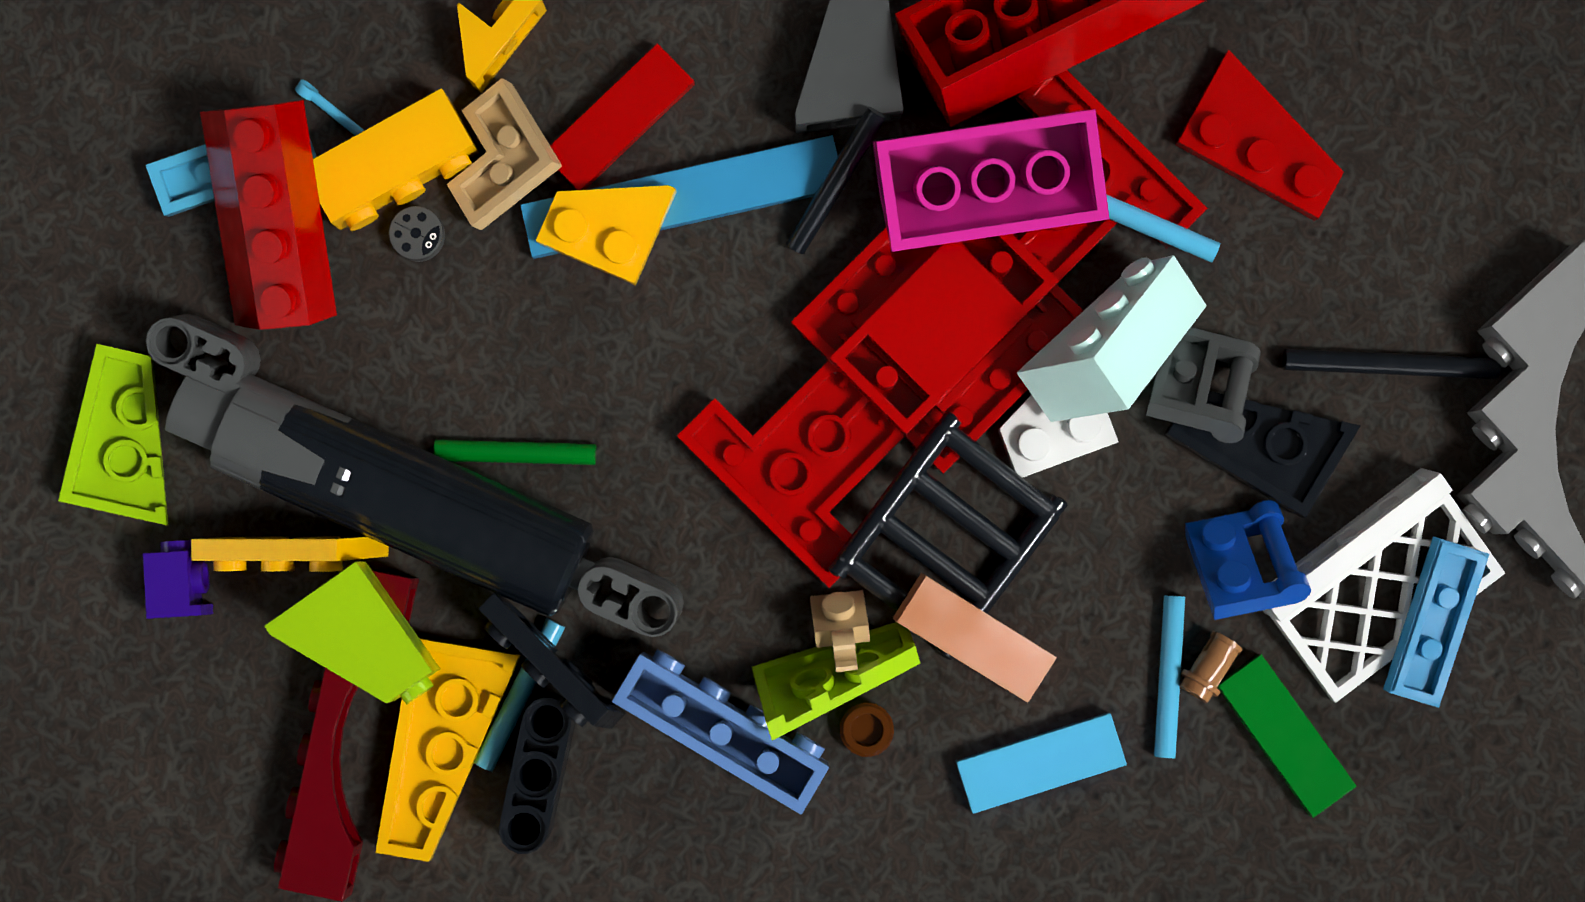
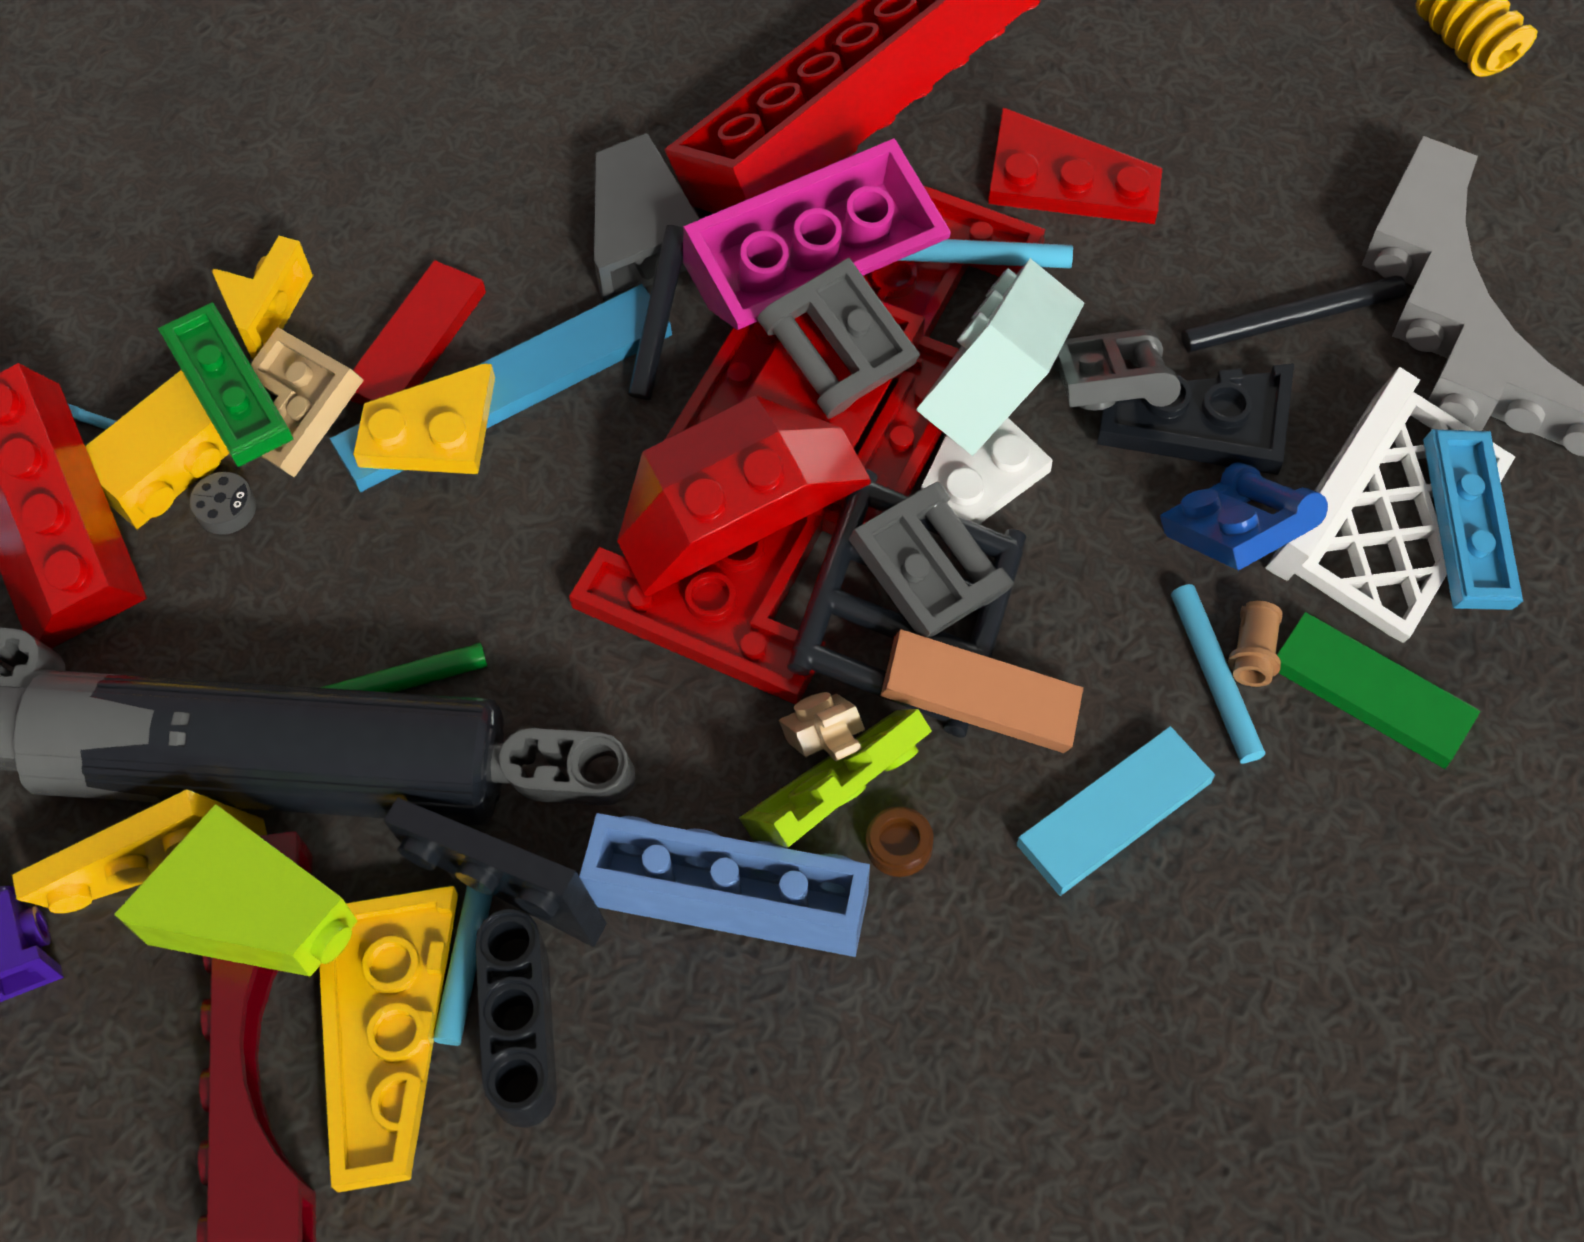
camera: 15 degrees left, 25 degrees down
(443, 139) = (225, 384): none -> green tile
(837, 400) = (731, 487): none -> red wedge
(958, 525) = (918, 571): none -> dark grey plate
(990, 290) = (854, 326): none -> dark grey plate

